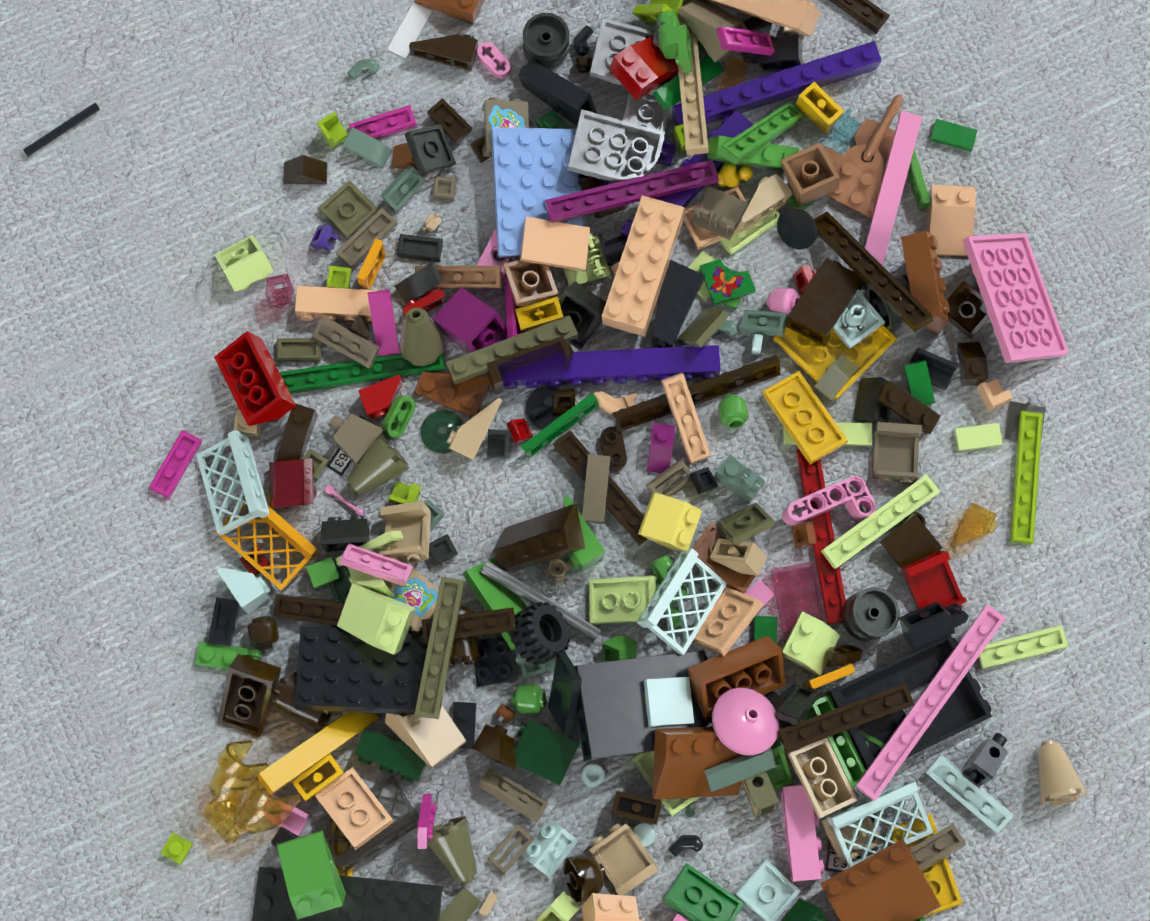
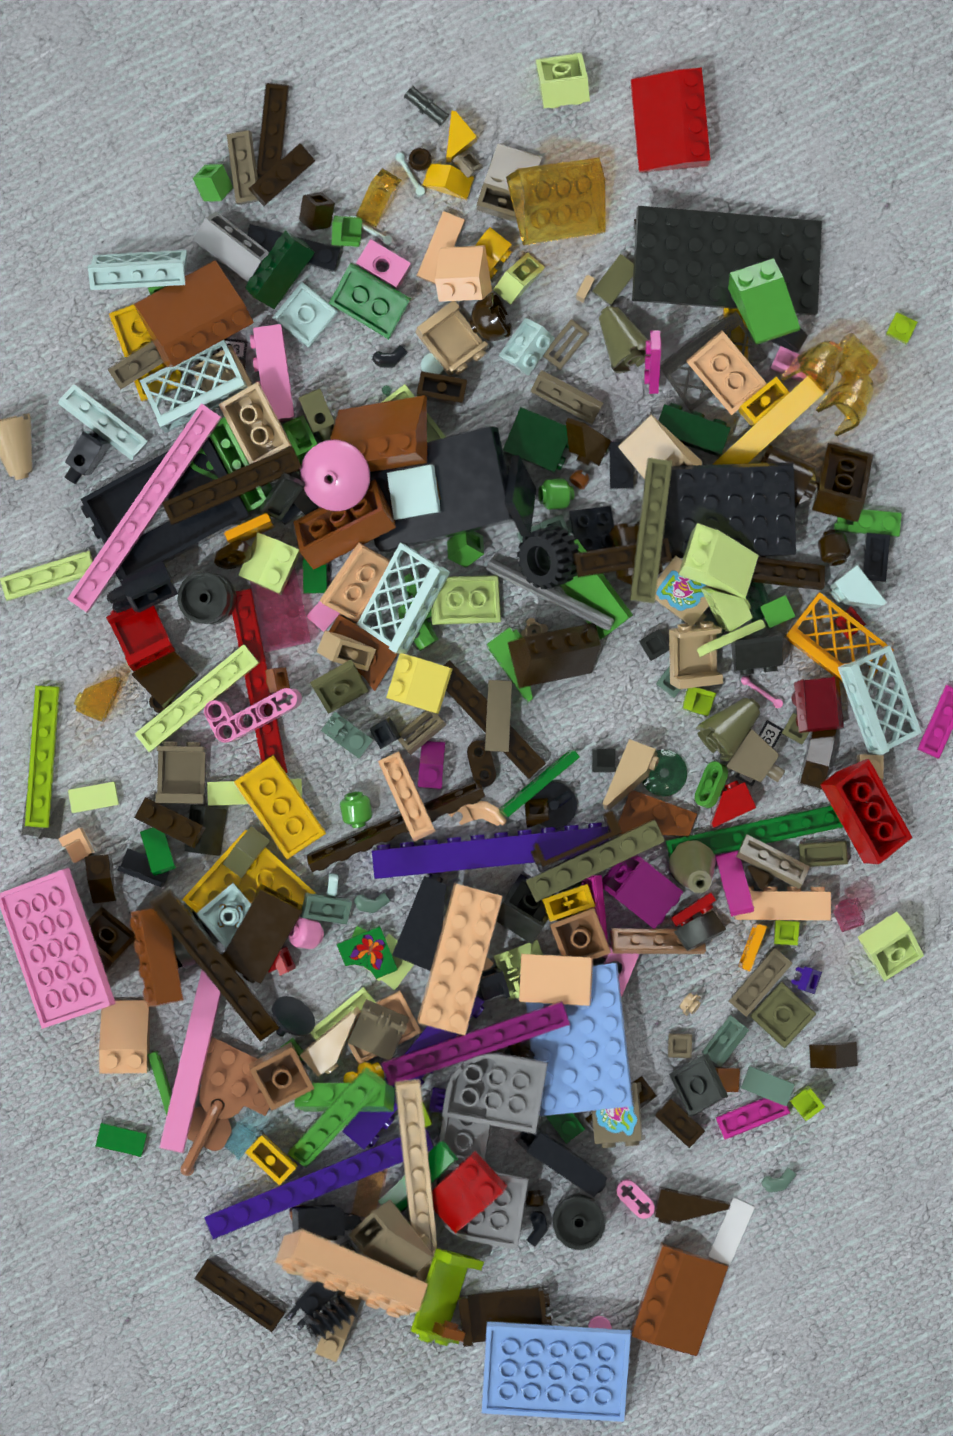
camera: 175 degrees left, 10 degrees up
(376, 565) = (722, 616): bright pink tile -> none
(420, 247) = (701, 976): pearl dark grey tile -> none
(519, 430) = (582, 776): red tile -> none
(593, 775) = (485, 419): light aqua tile -> none
(673, 40) = (437, 1220): bright green plate -> none
(703, 327) = (392, 898): olive tile -> none
(738, 769) = (340, 428): sand green tile -> none
(745, 40) = (358, 1222): dark pink tile -> none

